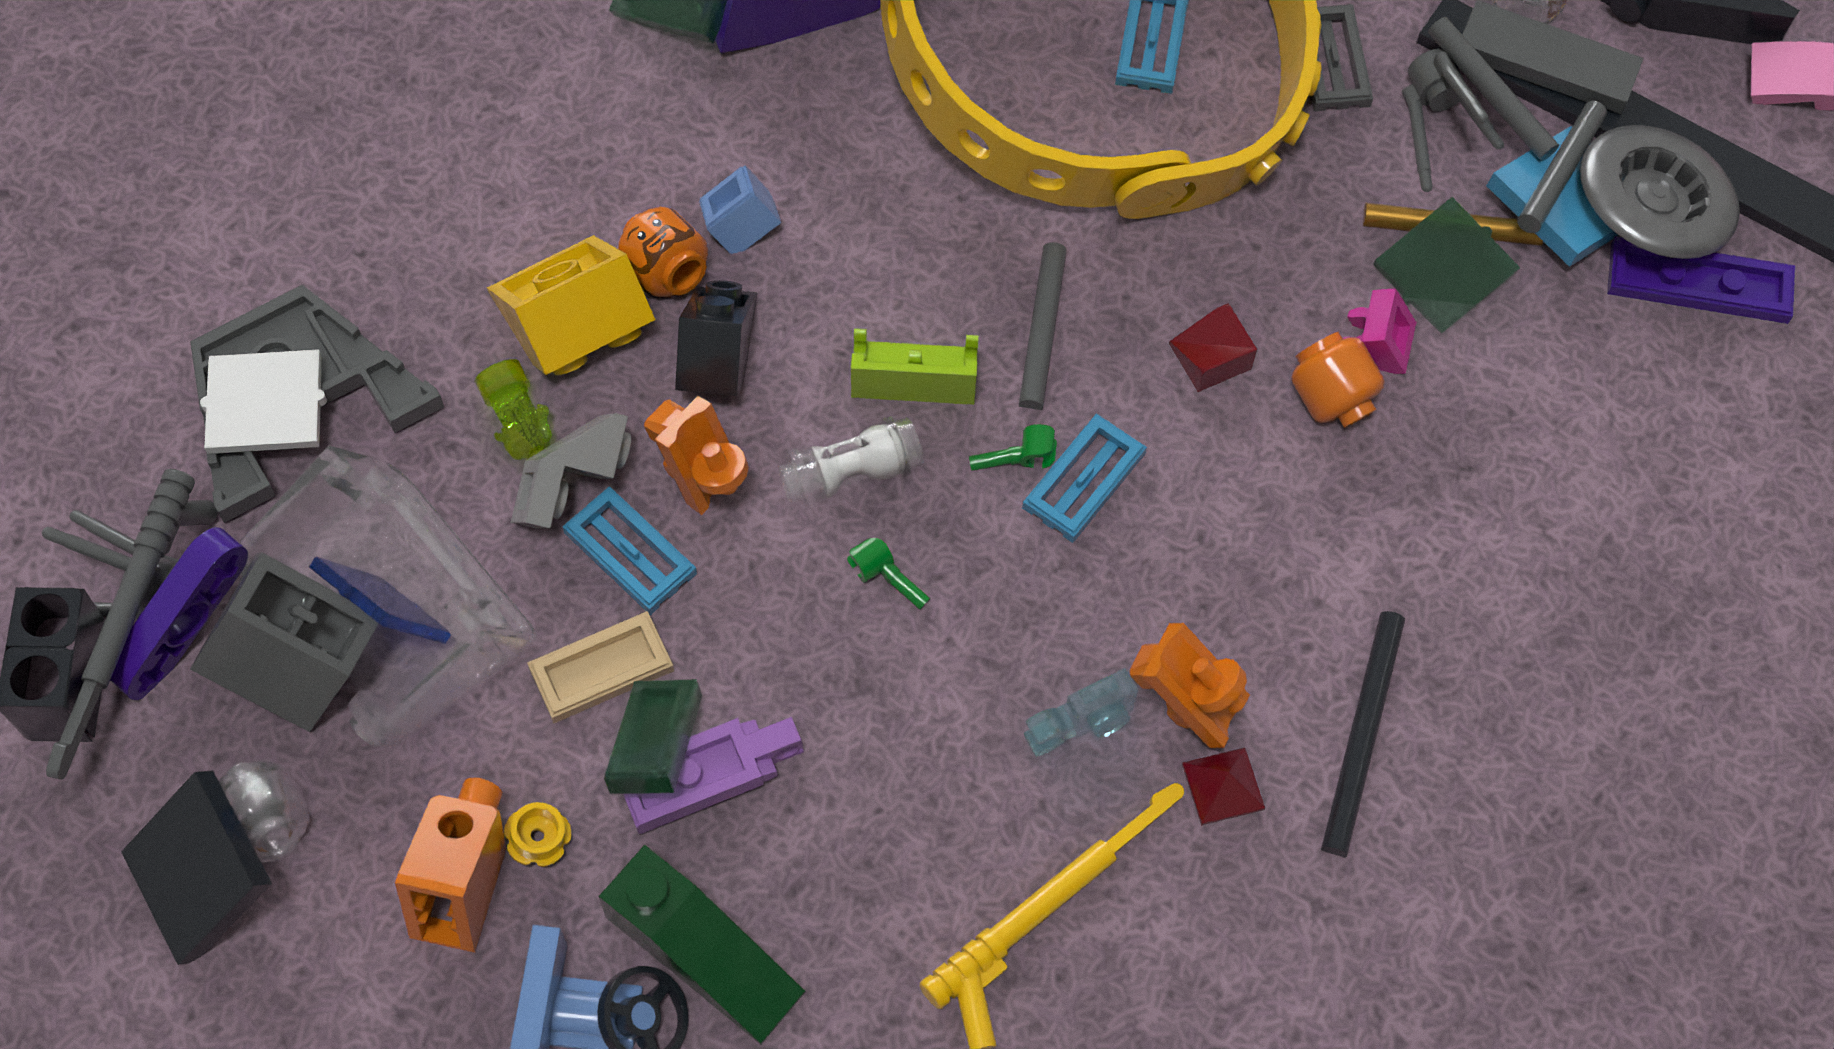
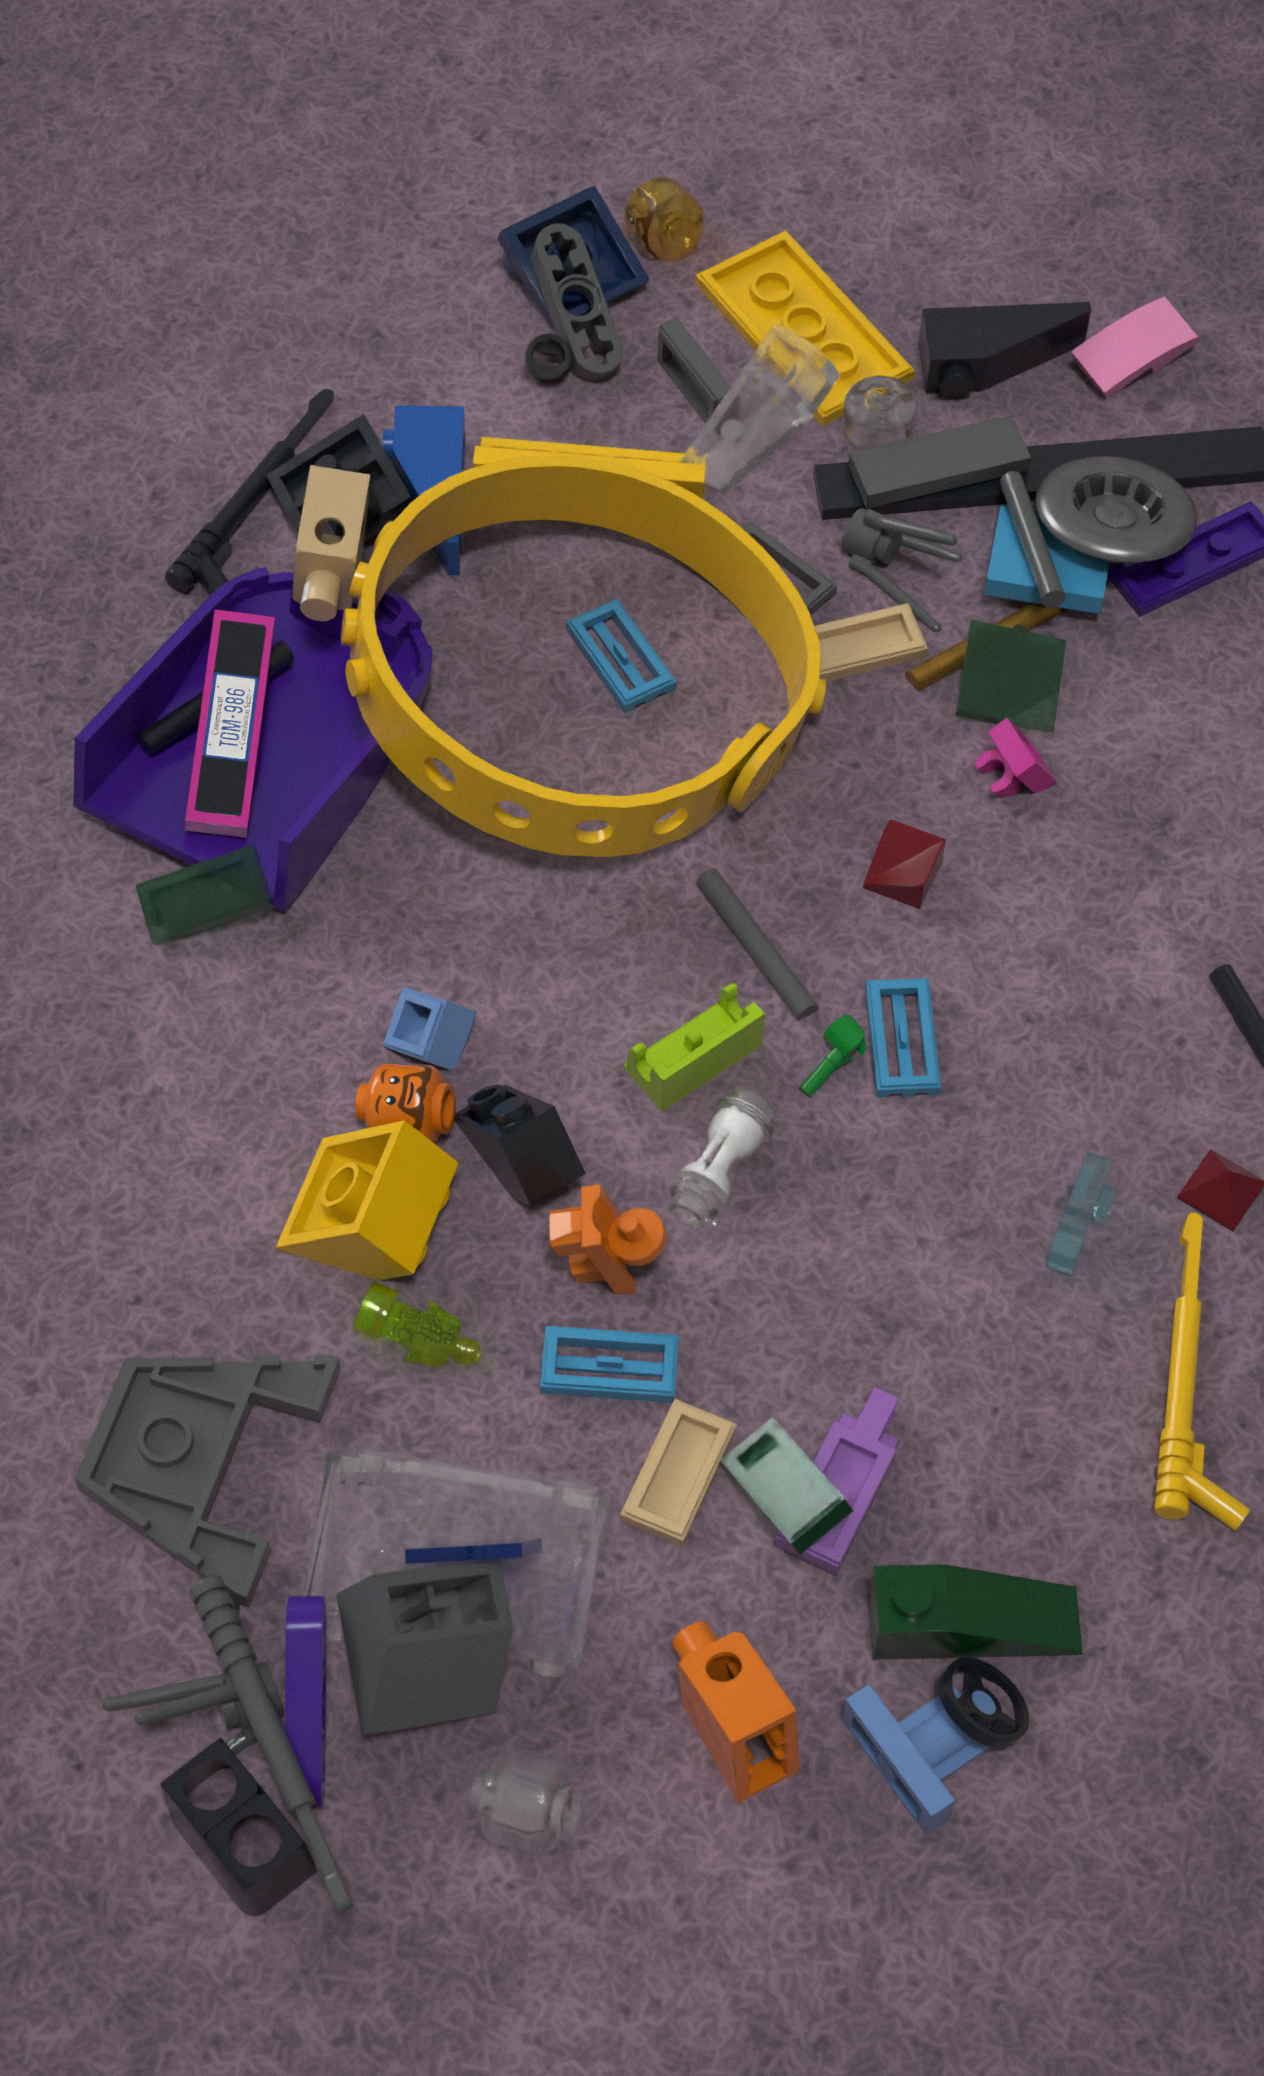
camera: 40 degrees left, 5 degrees down
(196, 867) = (528, 1884): black tile -> none
(263, 401) = (195, 1477): white piece -> none
(532, 818) = (775, 1625): yellow plate -> none
(589, 451) = (493, 1353): light grey slope -> none
(875, 558) = (811, 1218): green hand -> none
(1193, 683) = (1145, 1124): orange hips -> none
(1337, 380) = (1020, 821): orange head -> none
(1352, 158) = (869, 642): none -> tan tile
(1493, 89) = (927, 513): dark grey bar -> none

